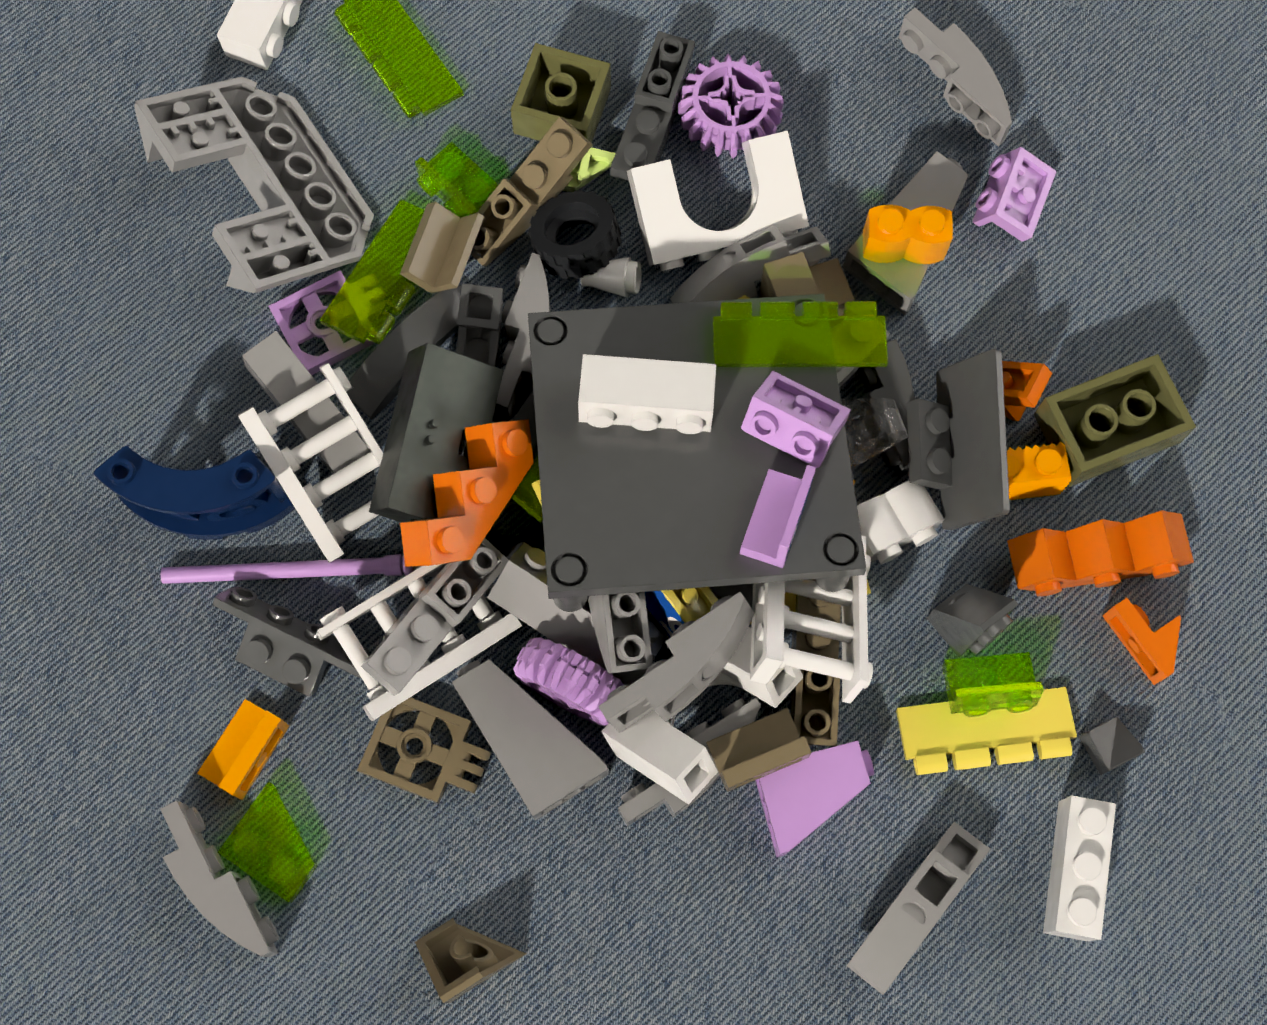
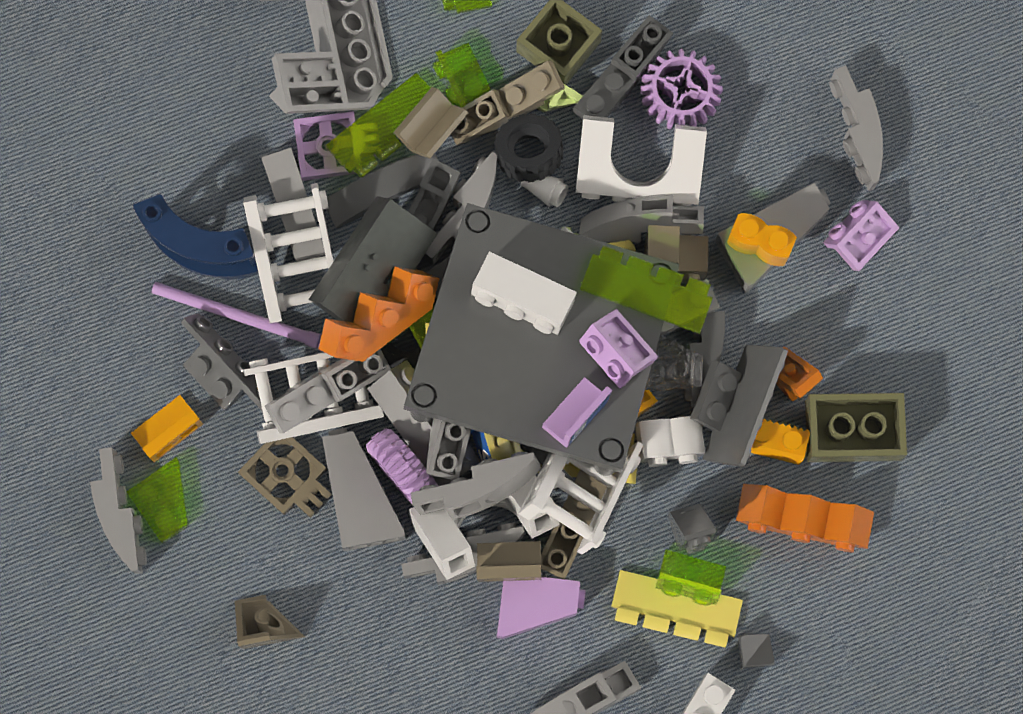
camera: 20 degrees right, 5 degrees up
(1151, 650) = (812, 597): orange slope -> none

